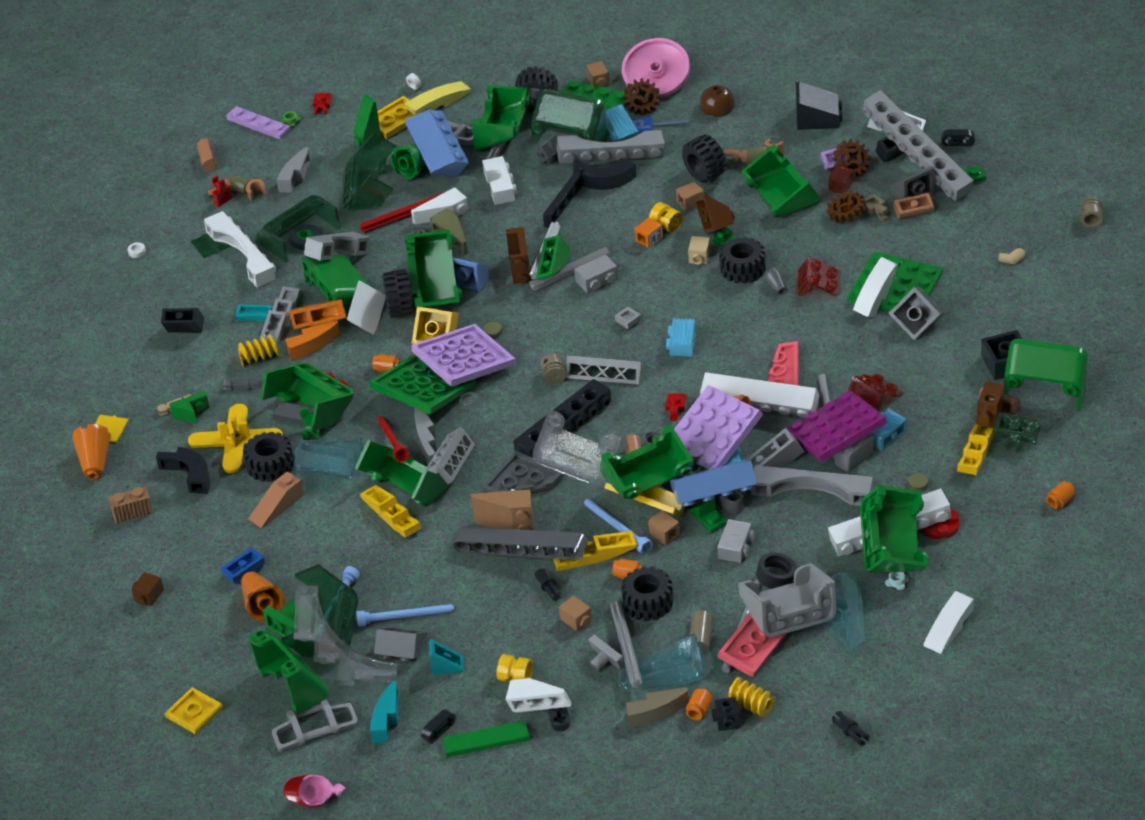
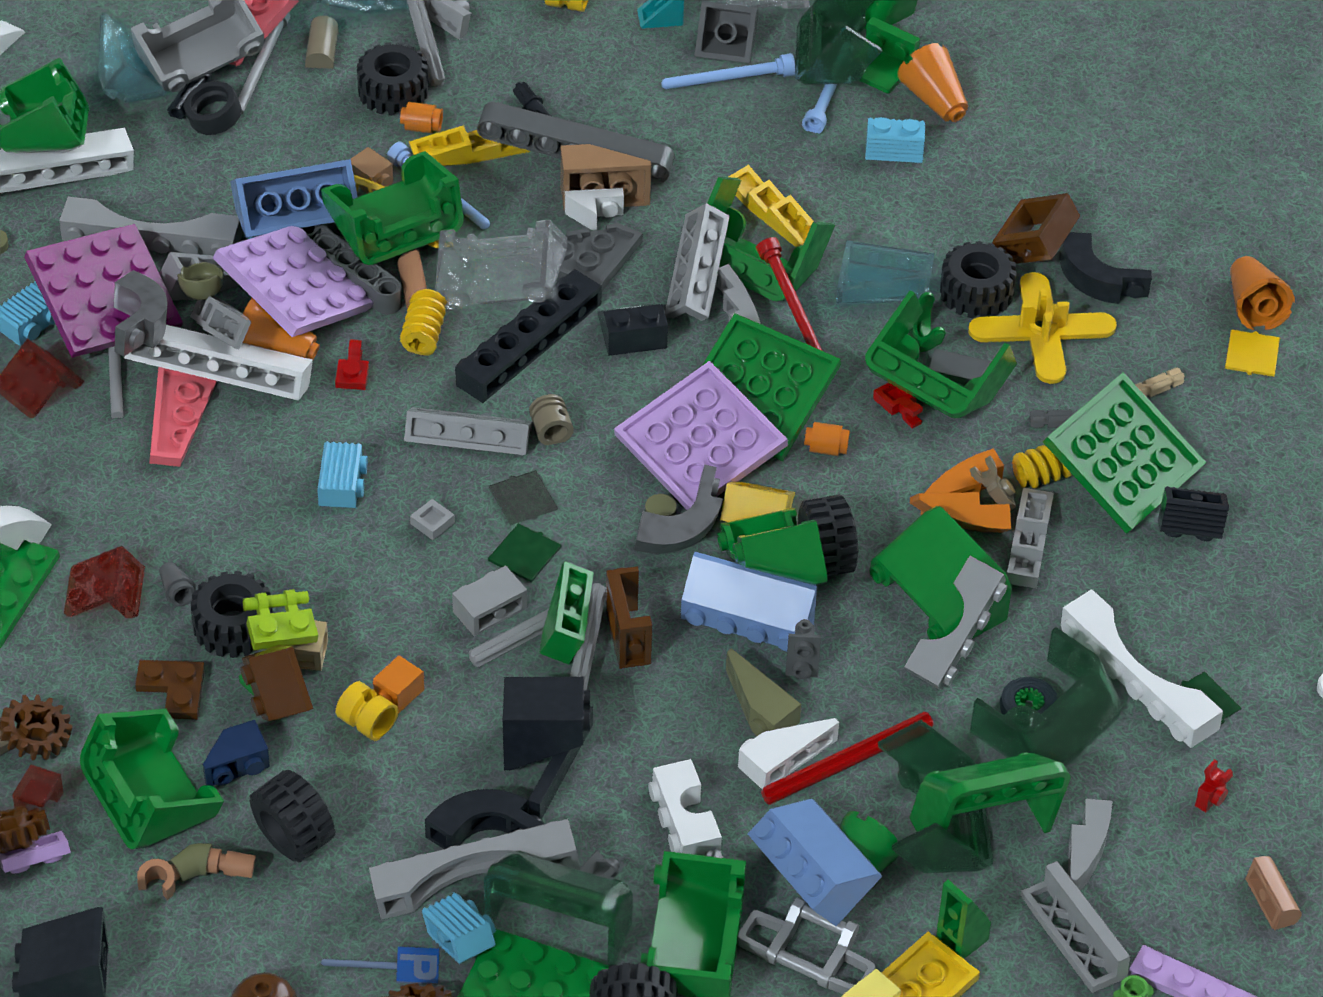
camera: 170 degrees right, 5 degrees up
(130, 504) = (1167, 214): medium nougat brick -> none
(147, 589) = (1099, 101): reddish brown brick -> none
(187, 407) = (1134, 362): green slope -> none
(212, 345) = (1124, 452): none -> plate
(233, 472) = (1057, 218): none -> reddish brown window
(241, 185) = (1183, 817): piece -> none
(247, 562) = (975, 131): blue slope -> none
(252, 312) = (1078, 552): teal tile -> none
(277, 499) = (945, 224): nougat slope -> none
(293, 329) = (998, 489): none -> dark tan plate
(298, 554) = (895, 140): none -> medium azure brick
(308, 141) = (1085, 921): none -> light grey fence
(336, 153) = (990, 784): none -> green windscreen
(366, 307) = (881, 530): white sticker -> none
(482, 308) = (675, 533): none -> flat silver arch
(495, 428) = (634, 329): none -> black slope
(569, 199) = (542, 718): none -> black slope
(573, 337) = (523, 497): none -> clear smoke piece
(575, 307) = (524, 552): none -> dark green piece
(575, 613) = (491, 61): medium nougat brick -> none
(630, 421) = (423, 322): none -> yellow piece
(687, 194) = (322, 763): medium nougat brick -> none
(713, 238) = (280, 628): none -> lime plate
(735, 541) = (267, 151): light grey brick -> none
(737, 198) = (235, 754): none -> dark blue slope
(754, 396) = (221, 320): none -> light grey slope
(772, 239) = (178, 679): none -> reddish brown plate
(772, 420) = (201, 280): none -> olive hair
(807, 401) = (147, 309): none -> flat silver arch

